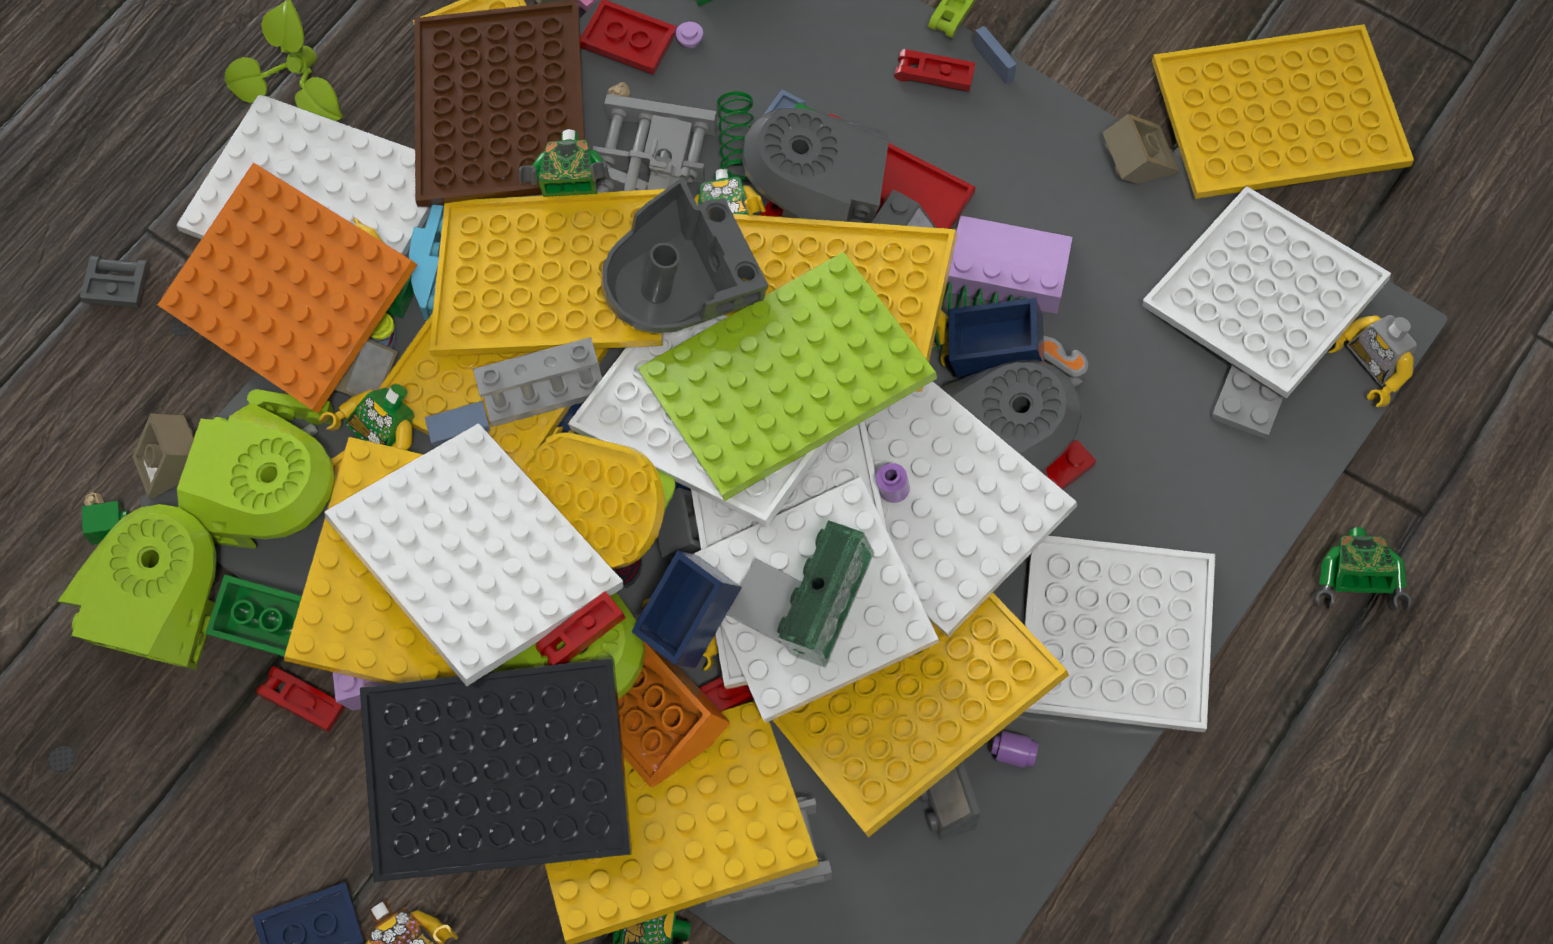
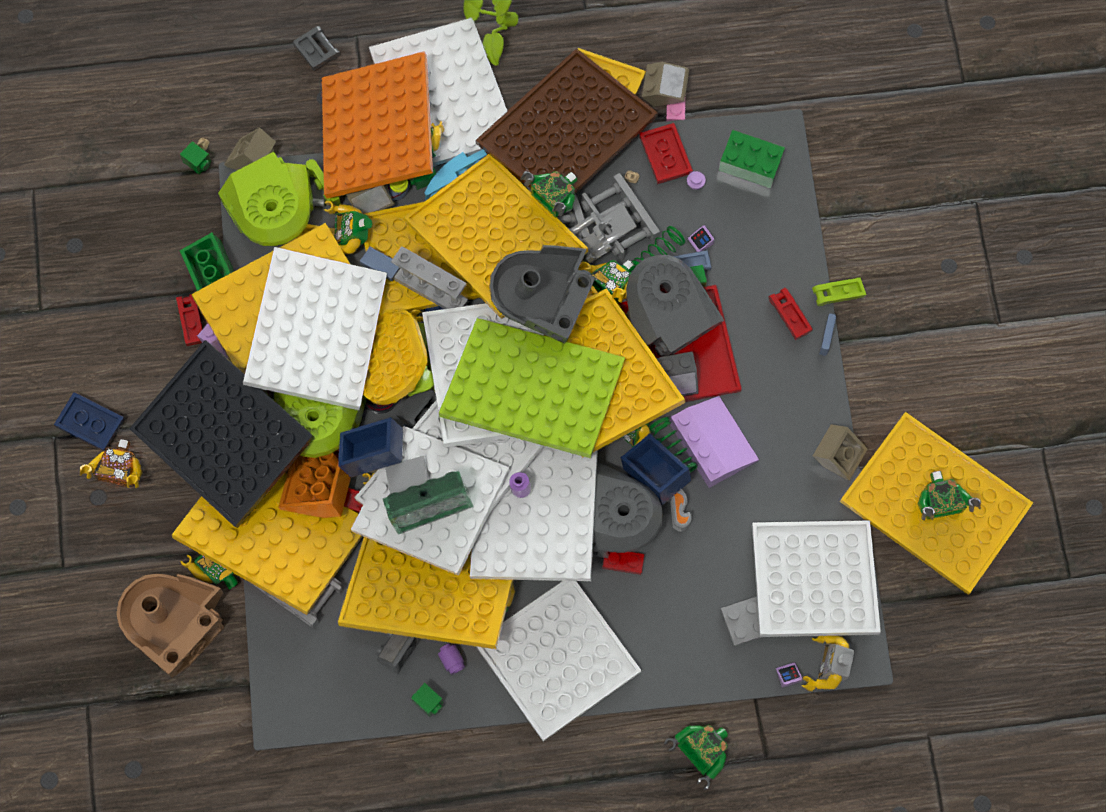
camera: 45 degrees right, 5 degrees up
(148, 587) = (177, 206): lime animal -> none
(580, 630) = (317, 410): red plate -> none
(763, 83) = (701, 239): none -> slope
(1042, 818) = (427, 700): none -> green brick
(1292, 92) = (944, 498): none -> torso
(1351, 409) = (789, 675): none -> slope

